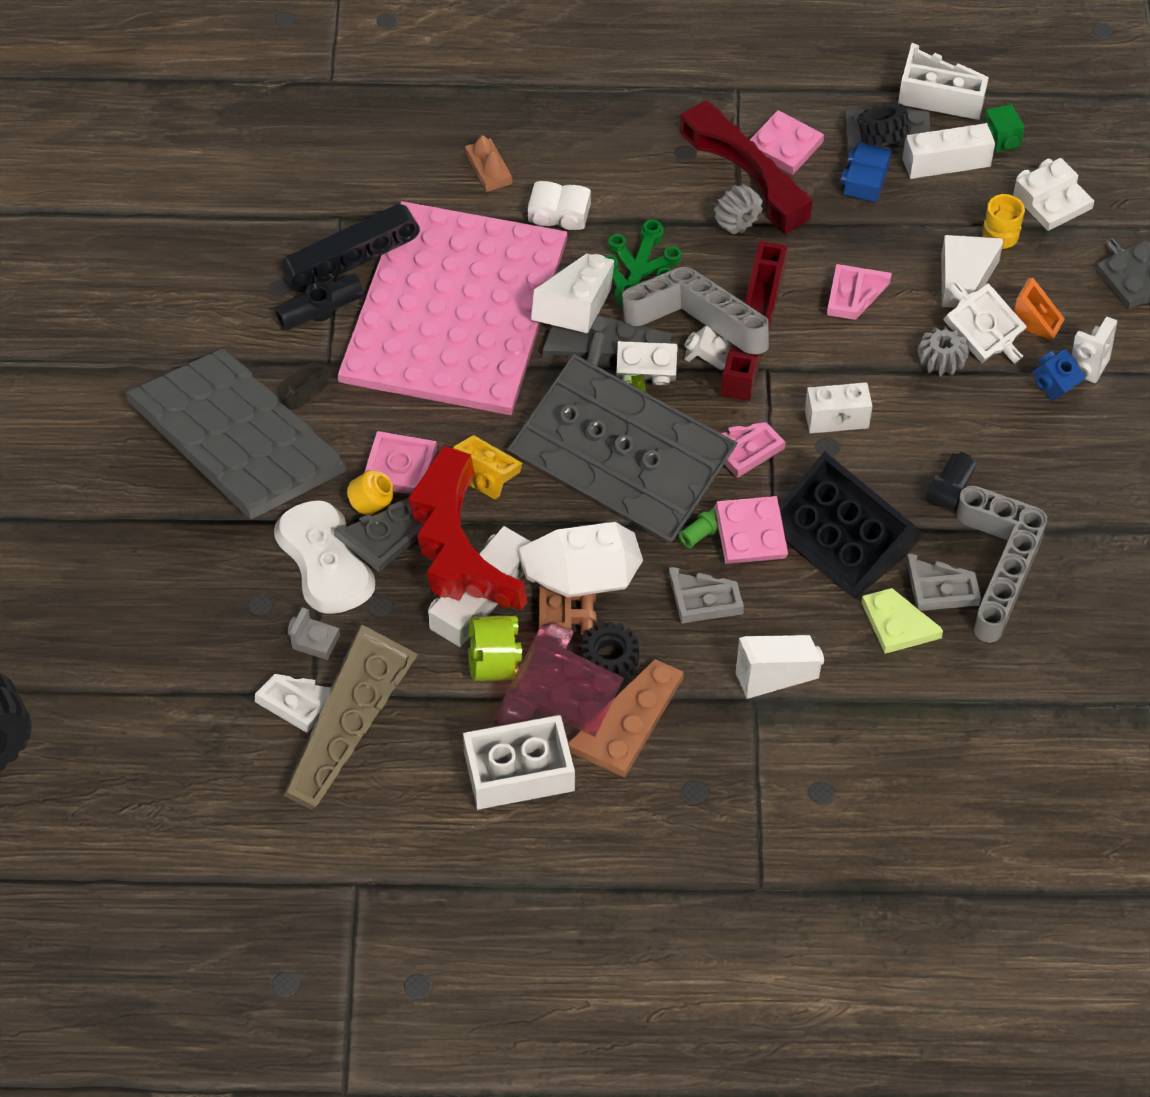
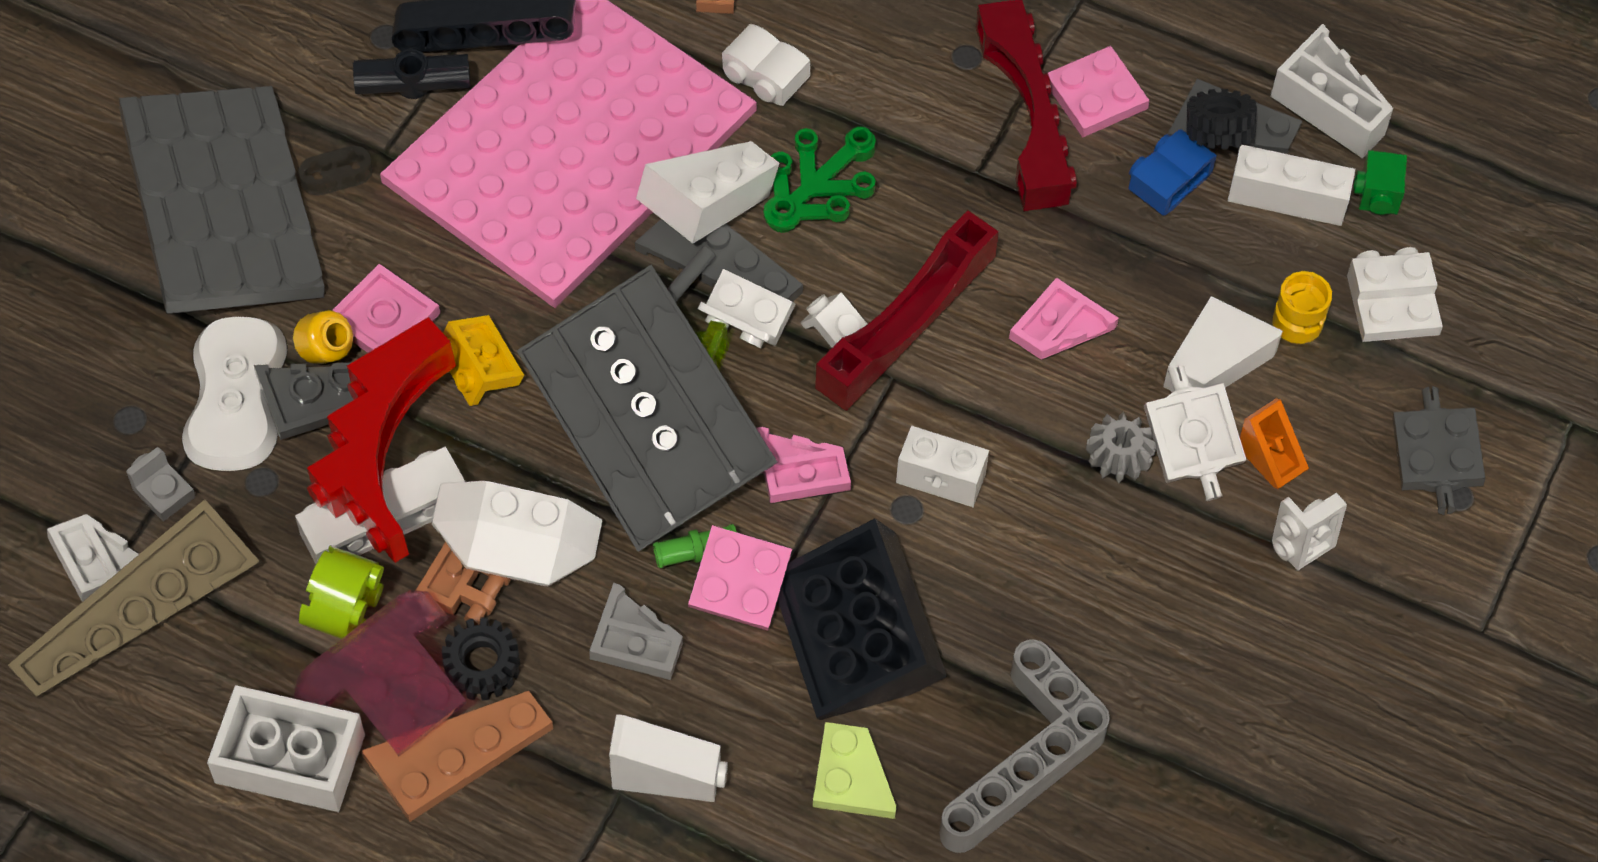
camera: 25 degrees right, 5 degrees up
(703, 300) = (849, 237): light grey beam -> none
(738, 209) = (975, 157): light grey gear -> none
(941, 585) = (930, 751): light grey wing -> none
(947, 487) = (1025, 622): black piece -> none
(1057, 373) = (1259, 541): blue brick -> none

